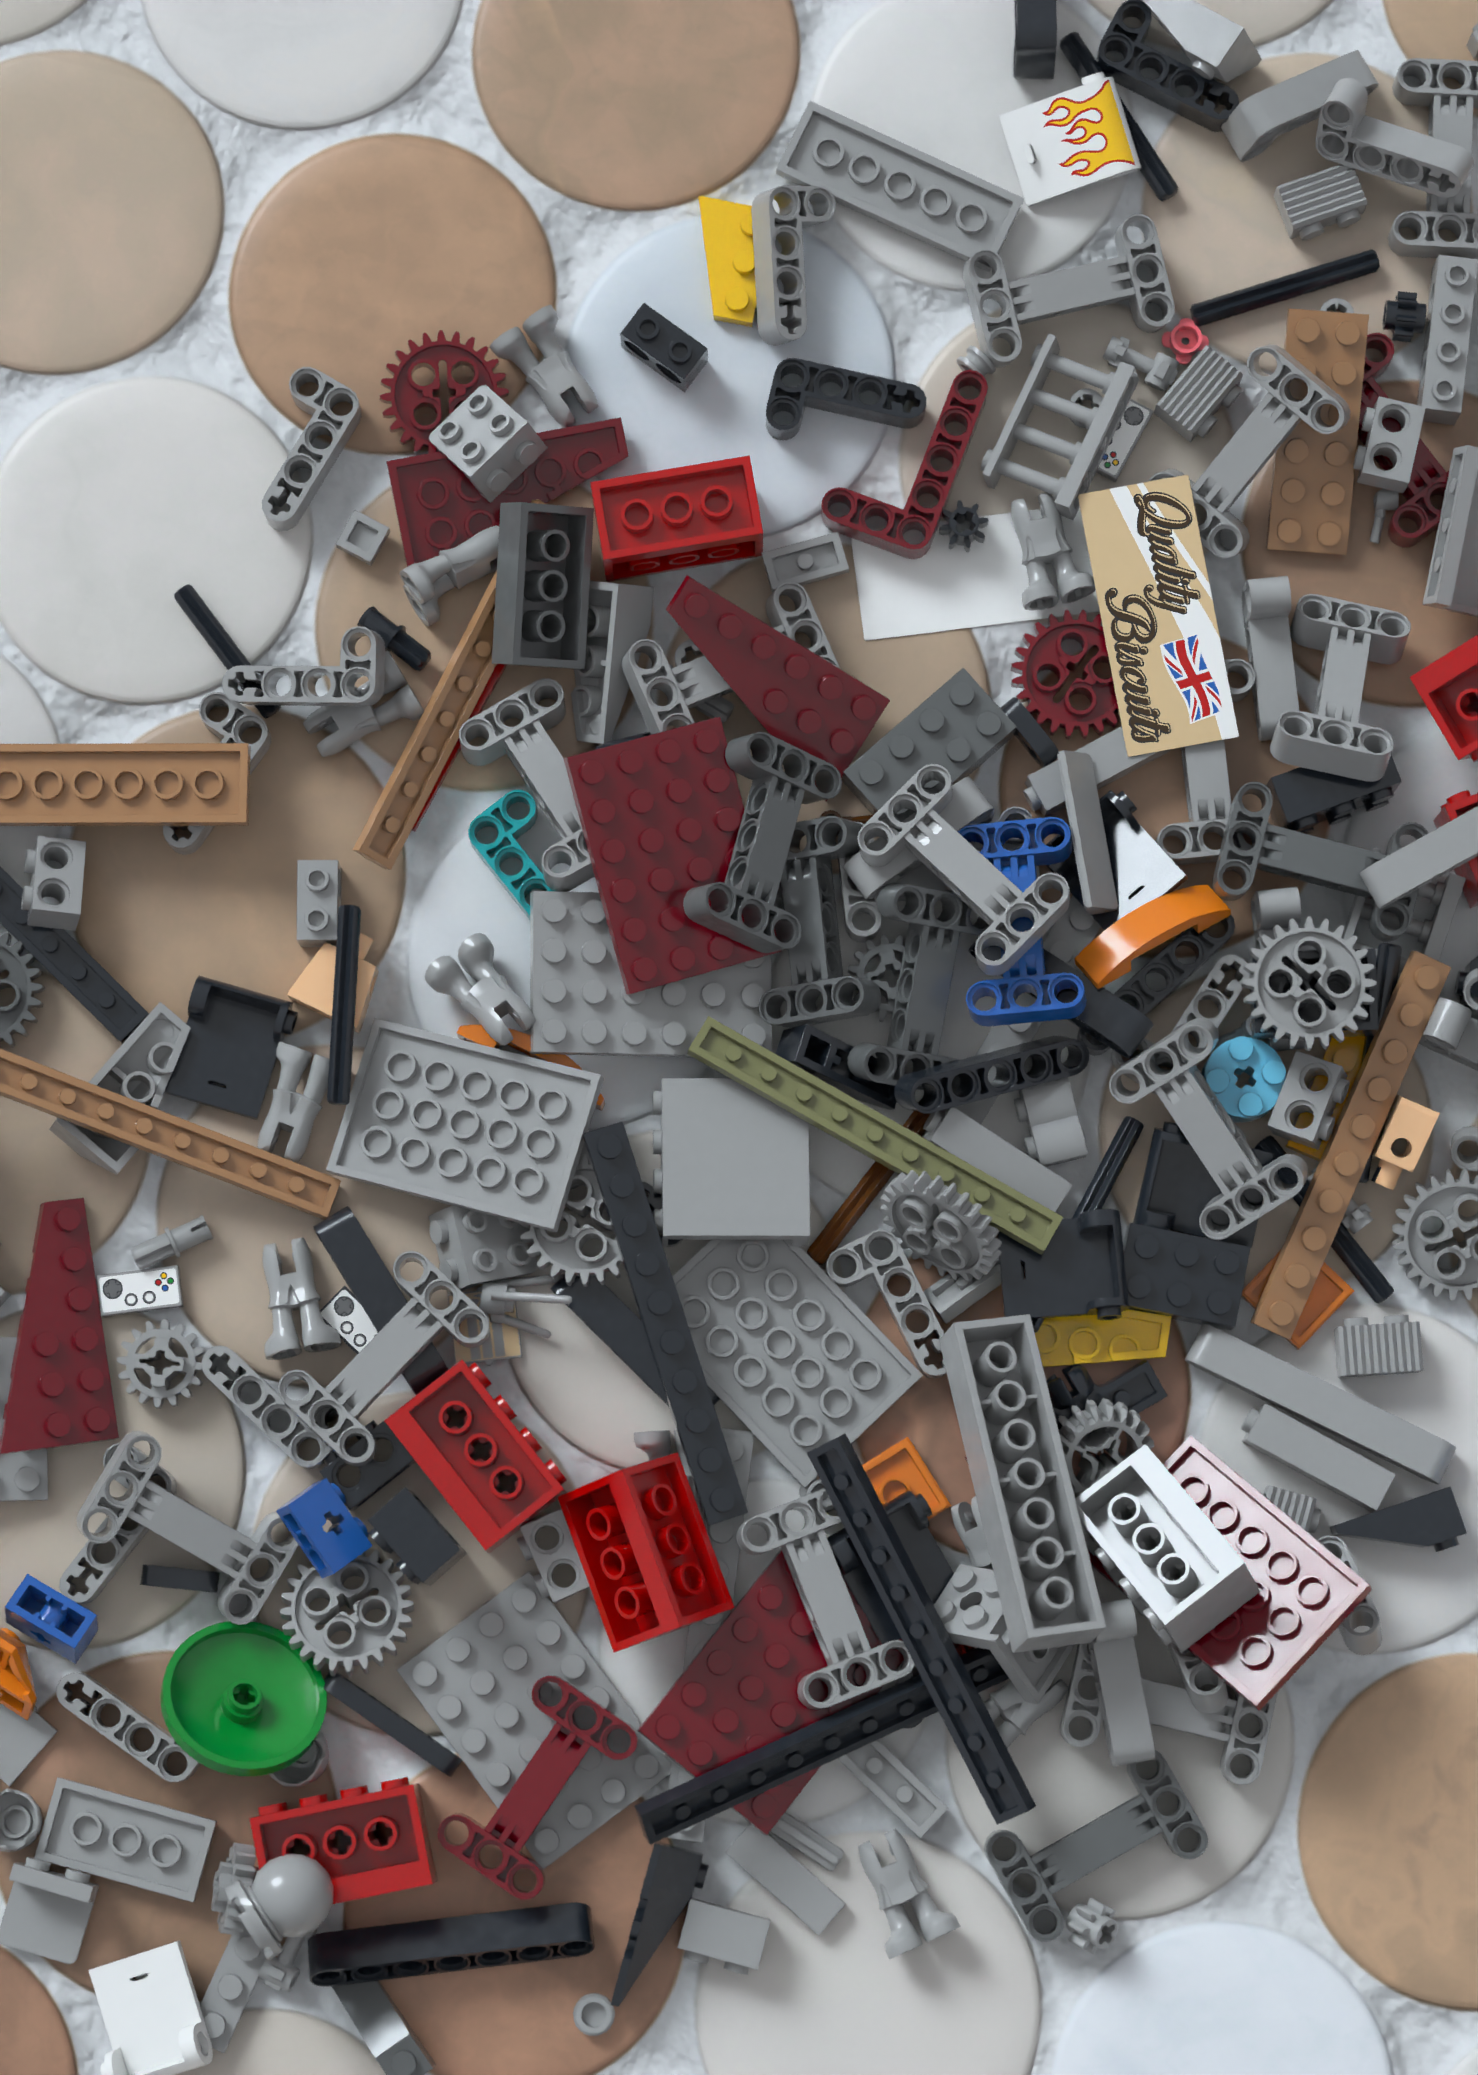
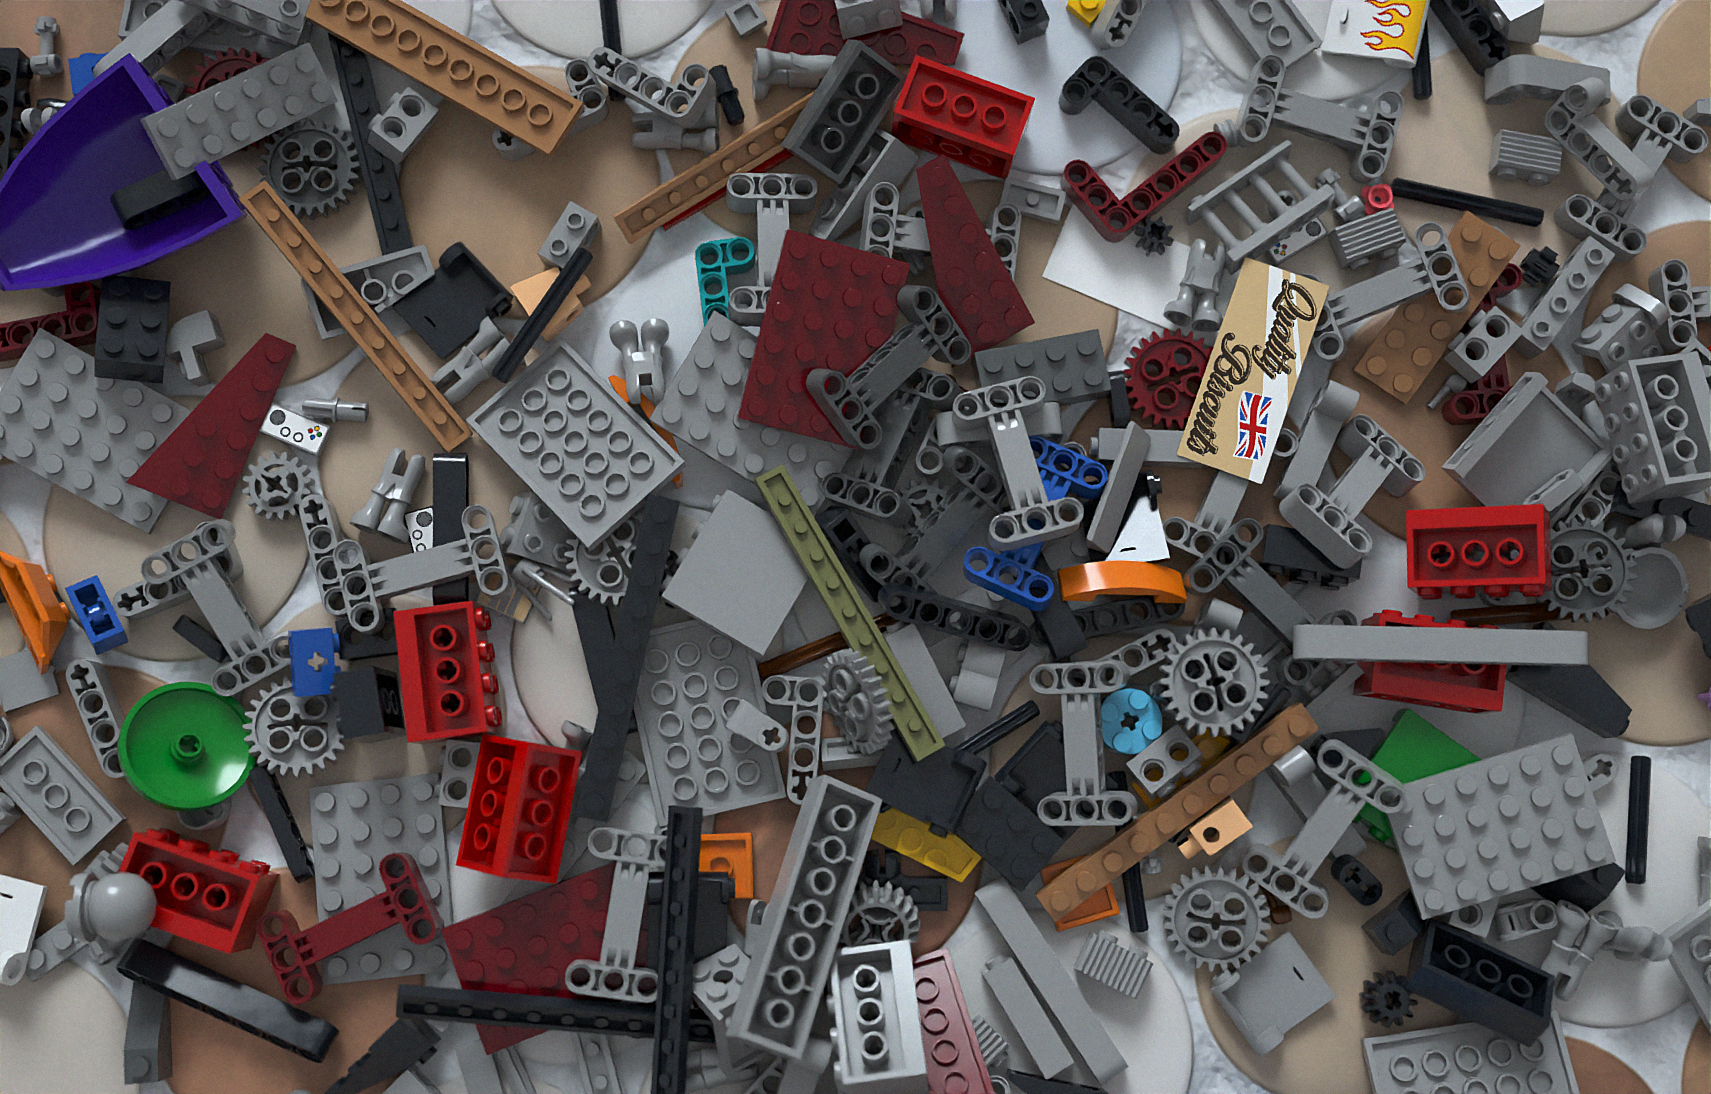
camera: 25 degrees right, 0 degrees up
(841, 1317) = (754, 725): none -> light grey piece

